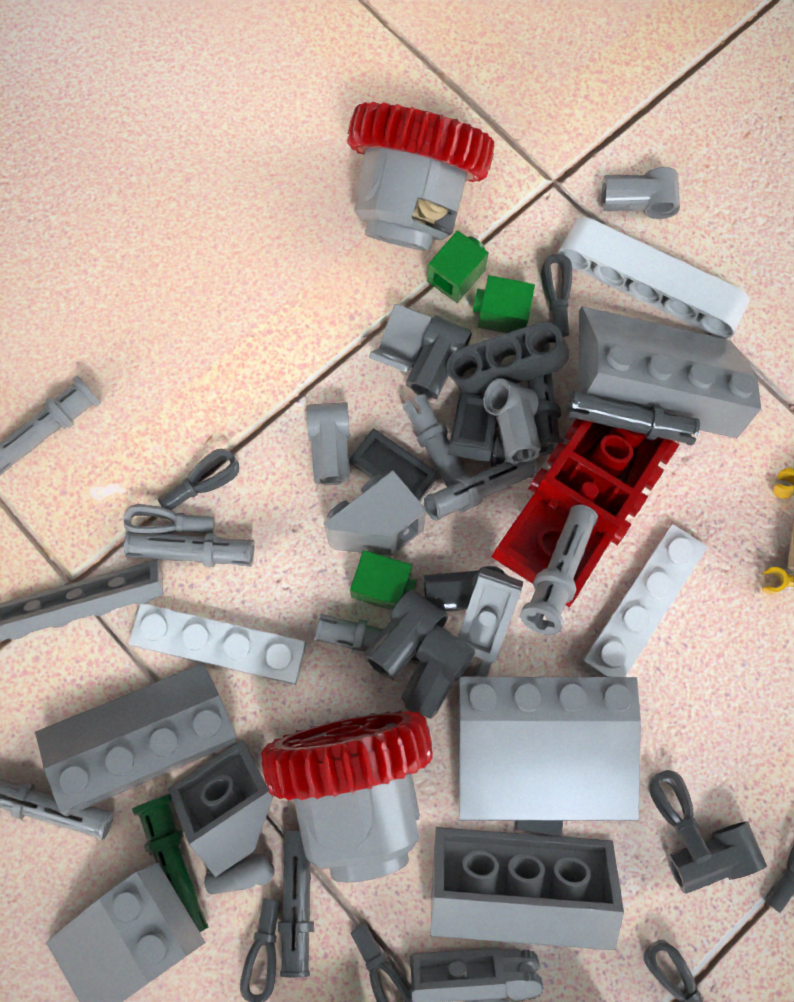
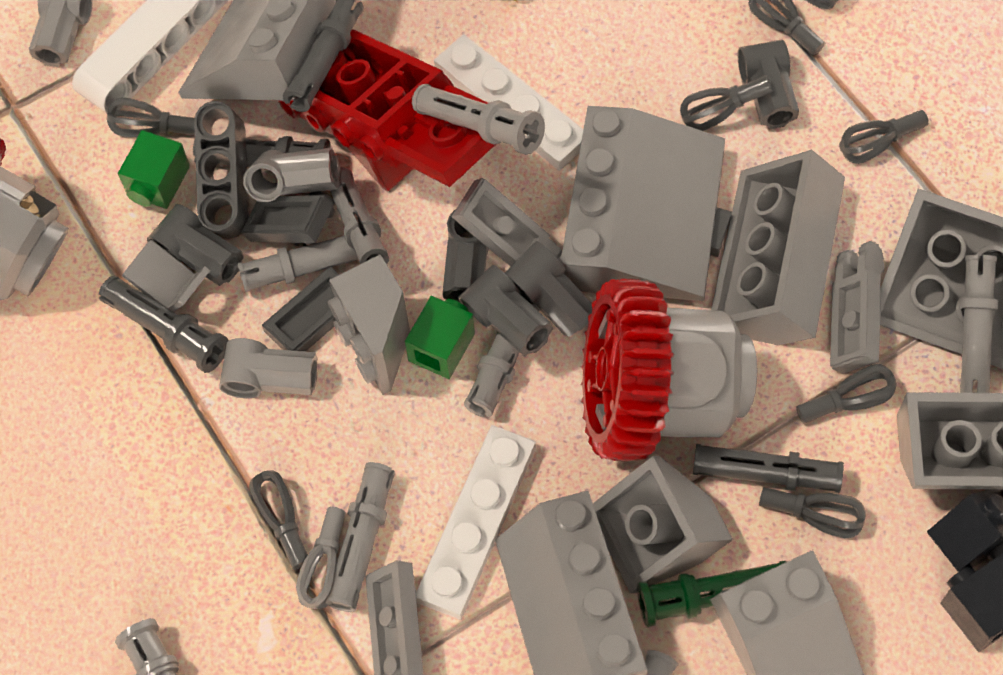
camera: 75 degrees left, 10 degrees down
(242, 875) = (736, 515): light grey arm -> none
(354, 362) = (178, 332): none -> dark grey pin
(457, 266) = (93, 210): green brick -> none

